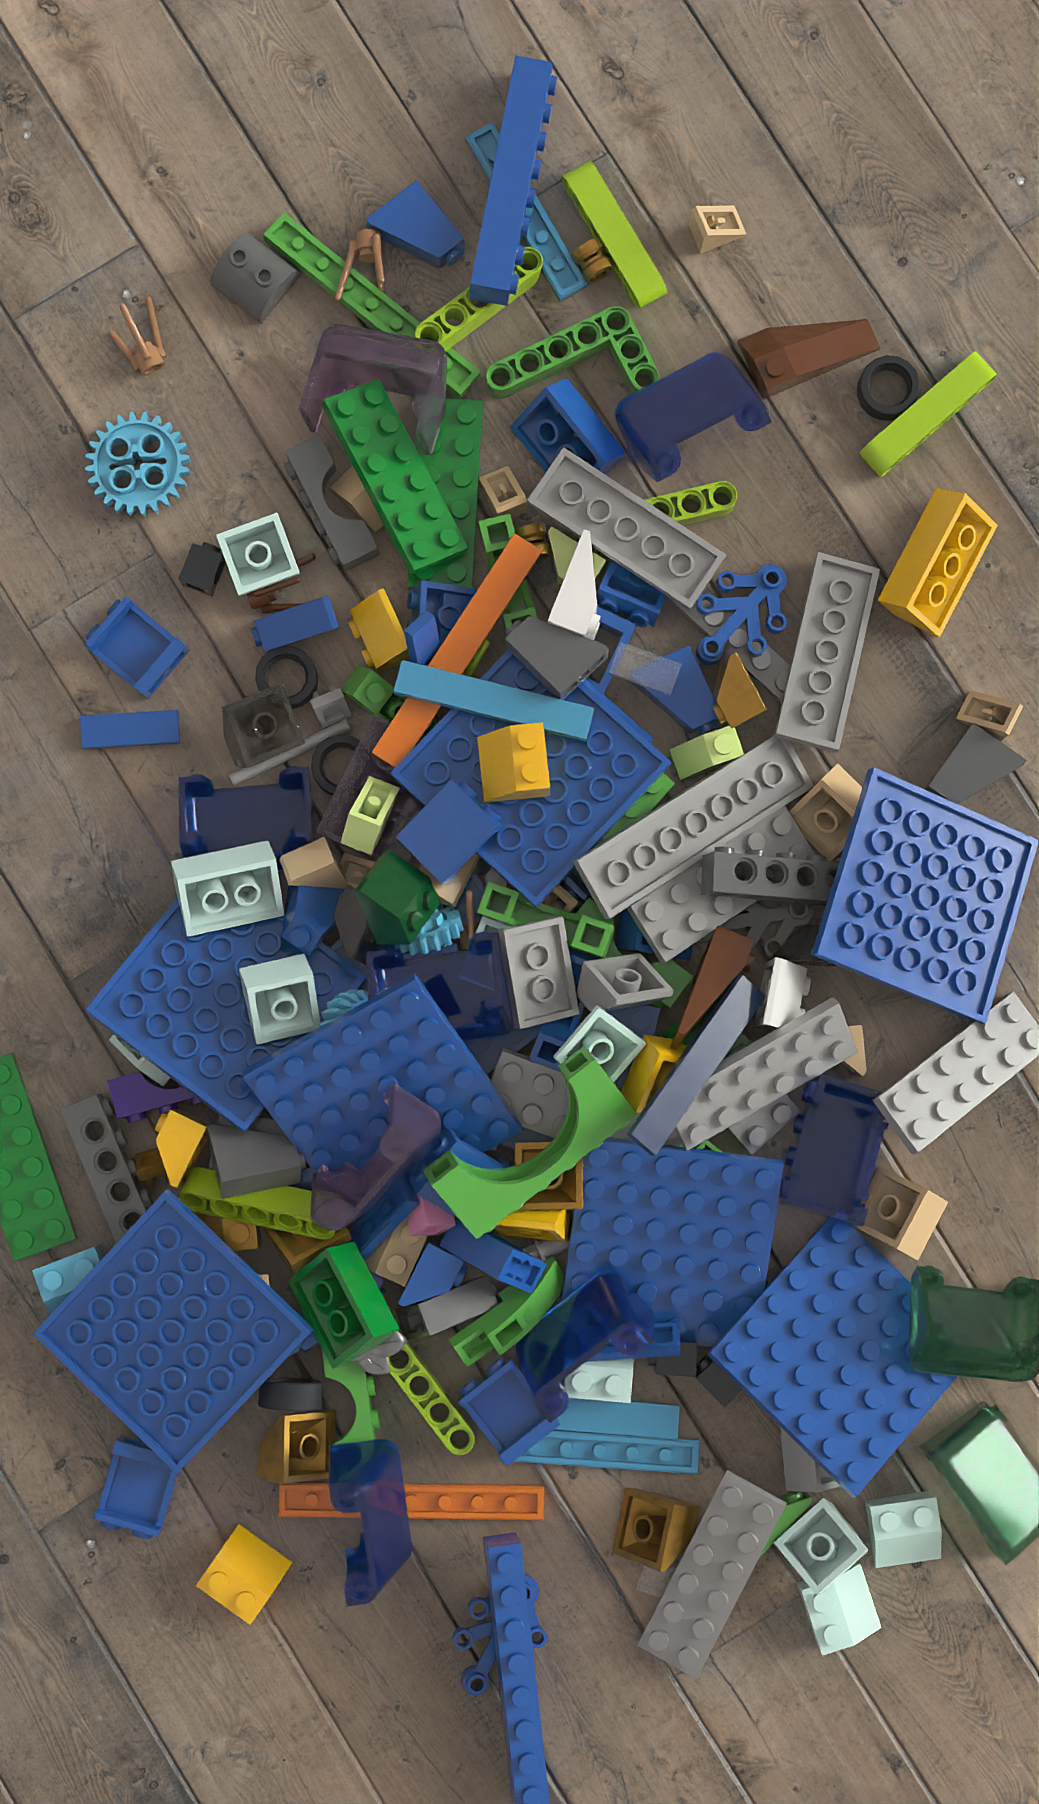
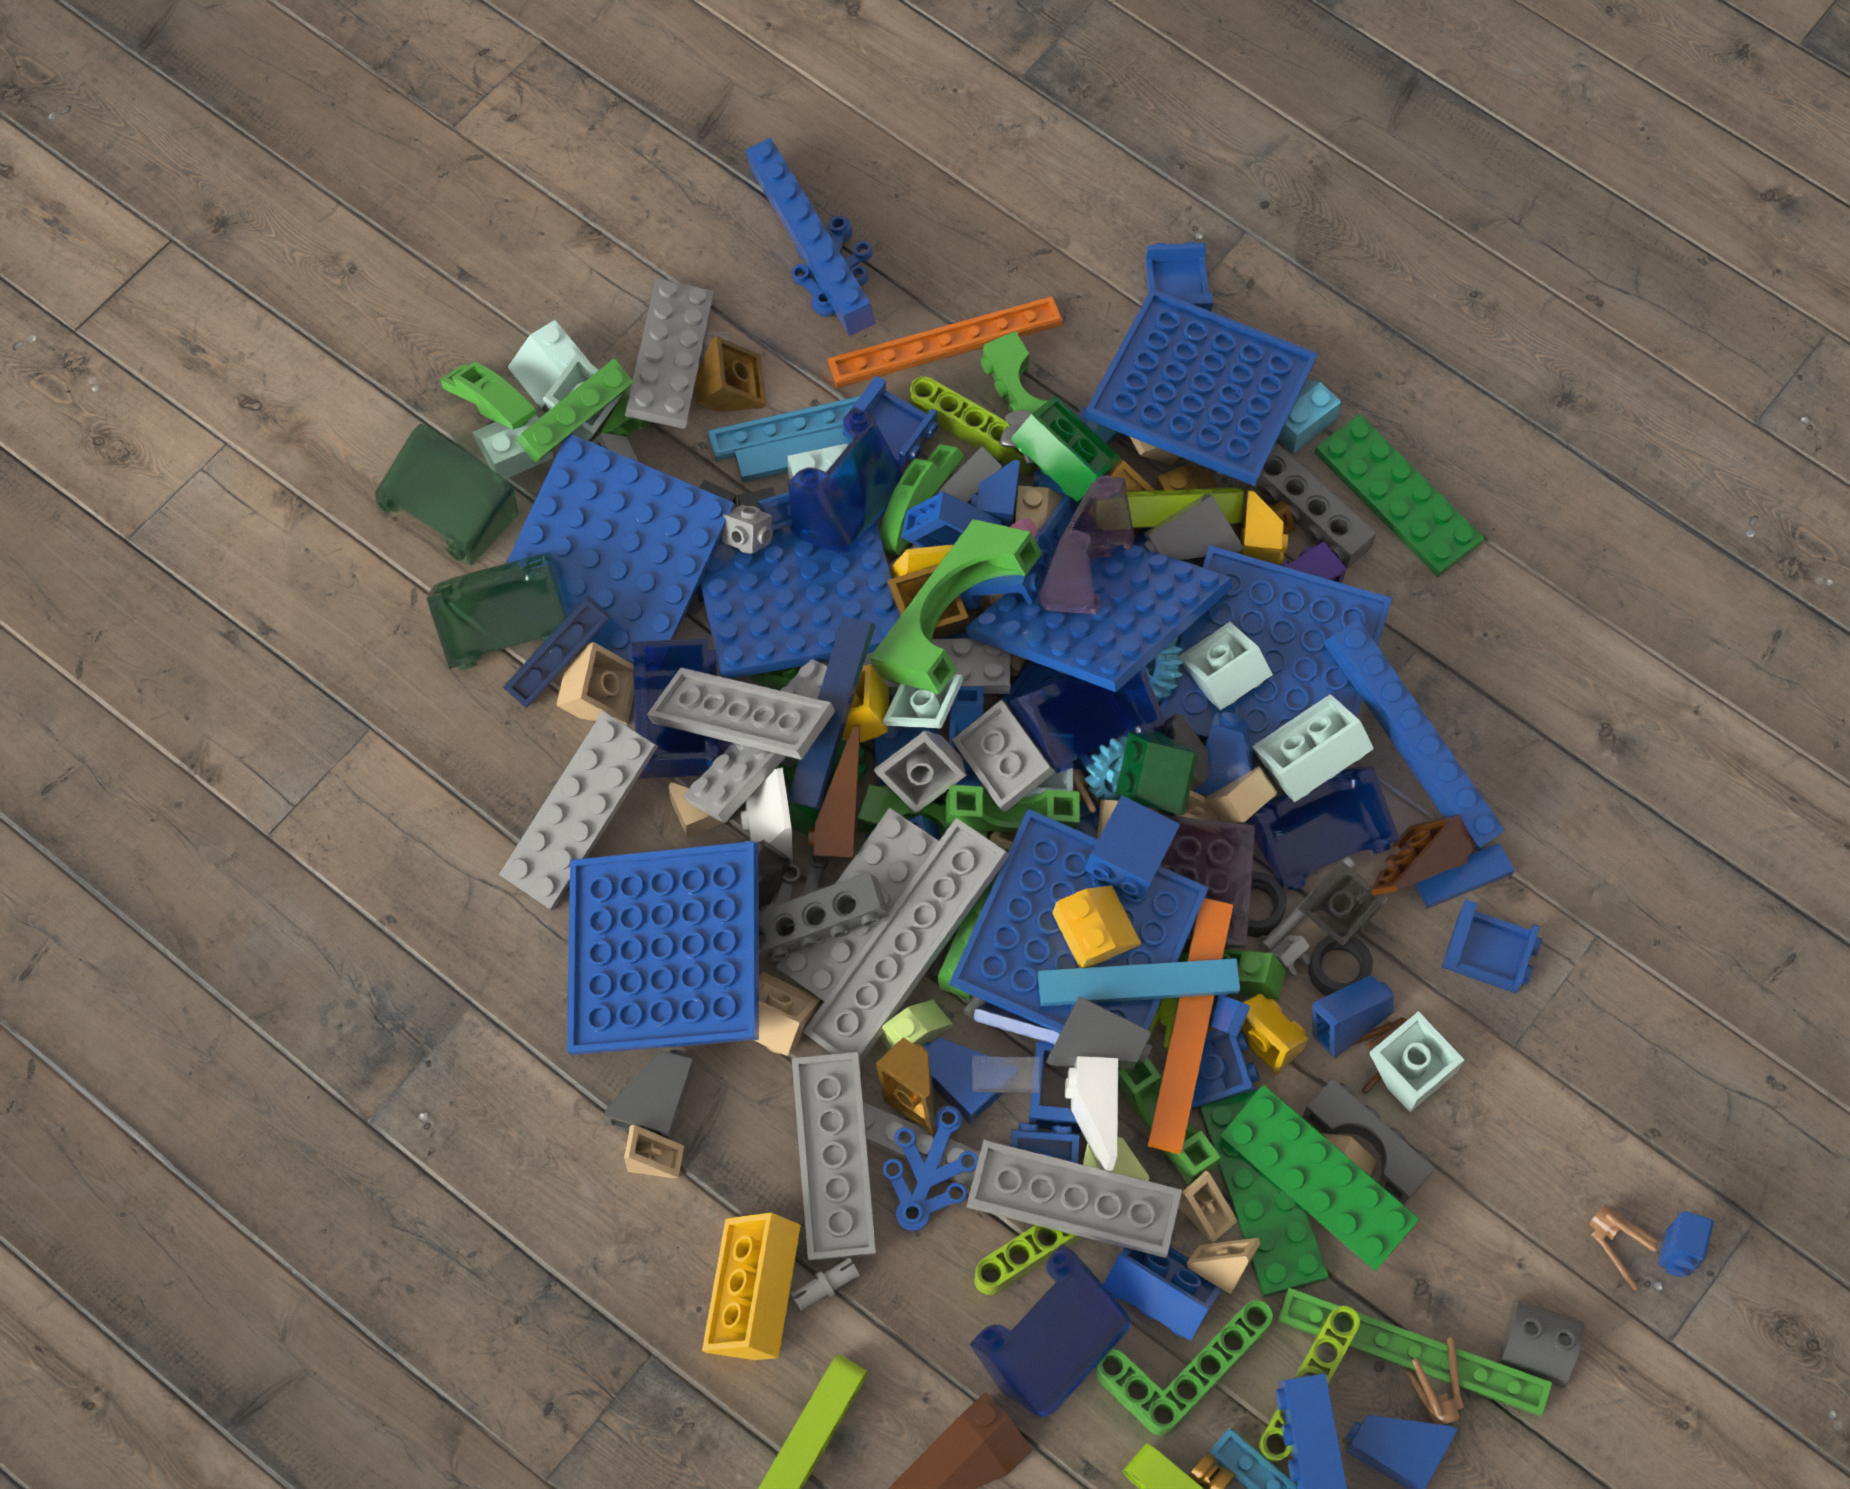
camera: 160 degrees right, 20 degrees down
(90, 305) = (1685, 1244): none -> blue brick
(124, 868) = (1411, 731): none -> blue brick
(136, 436) = (1584, 1141): medium azure gear -> none
(166, 746) = (1425, 852): none -> reddish brown wedge
(202, 568) = (1464, 1034): black brick -> none
(244, 1574) = (1063, 244): yellow slope -> none
(290, 1394) = (1079, 379): black tyre -> none
(297, 1448) = (1056, 344): pearl gold slope -> none
(369, 815) = (1211, 848): yellowish green slope -> none
(370, 1481) = (980, 316): clear blue windscreen -> none
(404, 365) = (1418, 1270): windscreen -> none
(509, 437) = (1223, 1261): none -> tan slope
(535, 534) = (1159, 1167): pearl gold wheel -> none
(701, 1324) = (747, 529): none -> light grey brick
(781, 1102) = (741, 713): none -> light grey plate
(859, 1511) = (574, 410): none -> bright green arch
(871, 543) = (825, 1284): none -> light grey pin
(890, 363) = (851, 1424): black tyre -> none
(918, 1583) = (490, 393): none -> bright green slope
(933, 1255) = (557, 651): none -> dark blue tile

